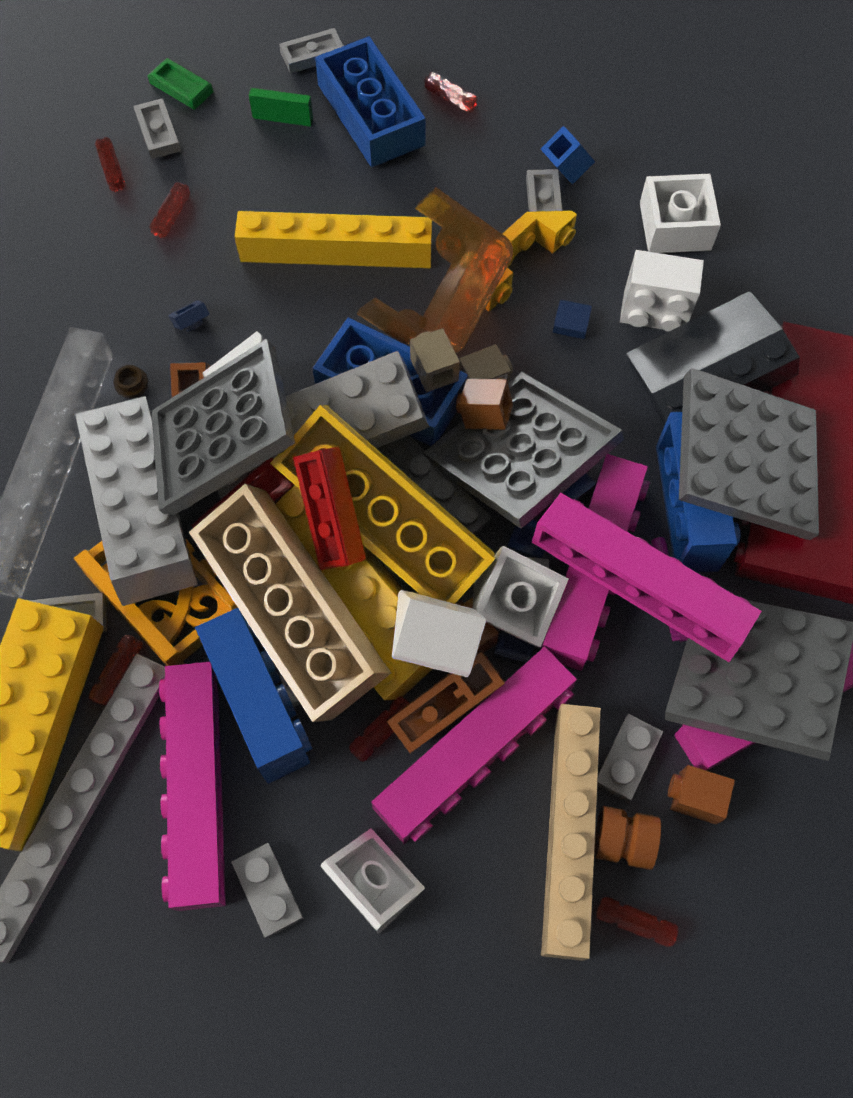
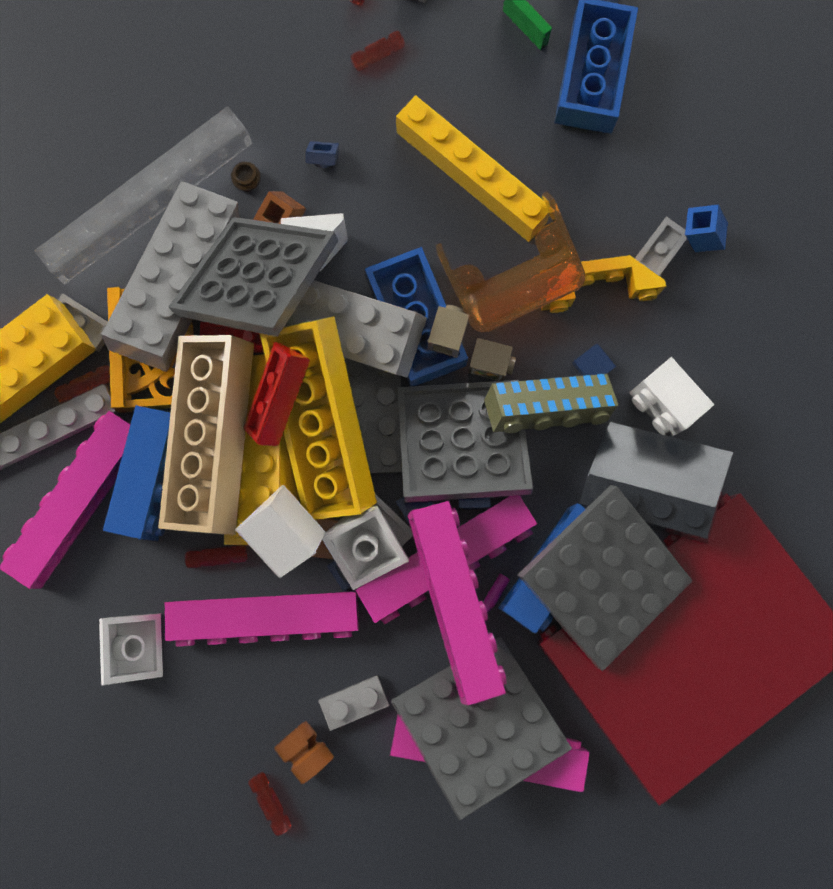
camera: 40 degrees right, 15 degrees up
(267, 890) = (69, 600): light grey plate -> none
(445, 703) = (255, 576): dark orange slope -> none
(450, 92) = (671, 99): clear red axle -> none
(485, 404) = (463, 388): dark orange brick -> none
(567, 363) = (550, 403): none -> olive brick
(571, 834) = (272, 720): tan brick -> none
(679, 213) = (748, 343): white brick -> none
(701, 794) = (375, 764): dark orange brick -> none

